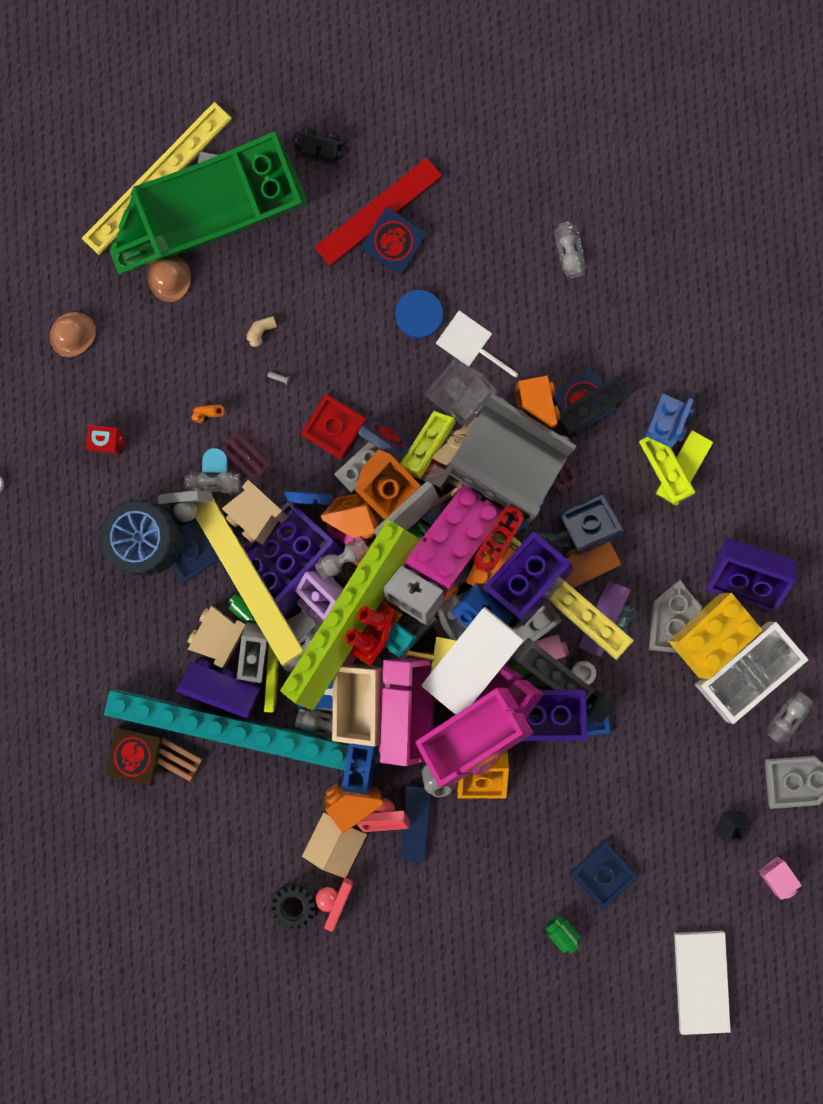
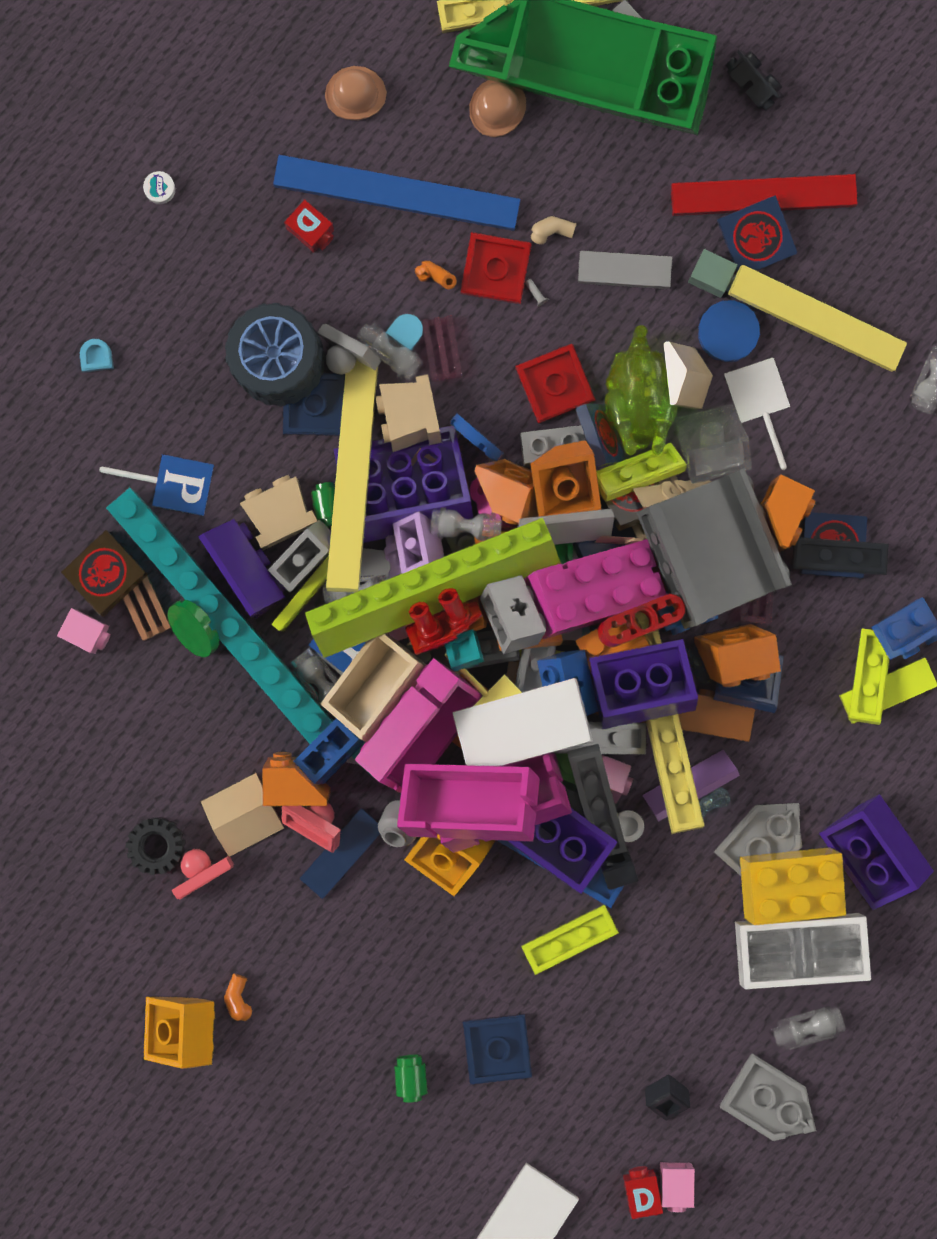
camera: 35 degrees right, 0 degrees up
(27, 621) = (95, 356): none -> medium azure tile
(141, 664) = (179, 485): none -> blue piece
(144, 378) = (396, 192): none -> blue tile
(148, 803) = (84, 631): none -> bright pink brick
(215, 751) = (192, 628): none -> green tile
(242, 381) = (495, 268): none -> red tile
(325, 322) = (624, 269): none -> light grey tile
(383, 284) = (713, 273): none -> sand green brick
(393, 395) = (639, 396): none -> clear neon green piece
(395, 1013) = (179, 1031): none -> light orange slope
(413, 361) = (686, 376): none -> tan slope
(419, 970) = (234, 1002): none -> orange arm
(468, 265) = (817, 318): none -> light yellow tile
(574, 514) = (739, 654): none -> orange slope
(598, 772) = (569, 939): none -> neon yellow tile
(762, 899) = (642, 1192): none -> red brick

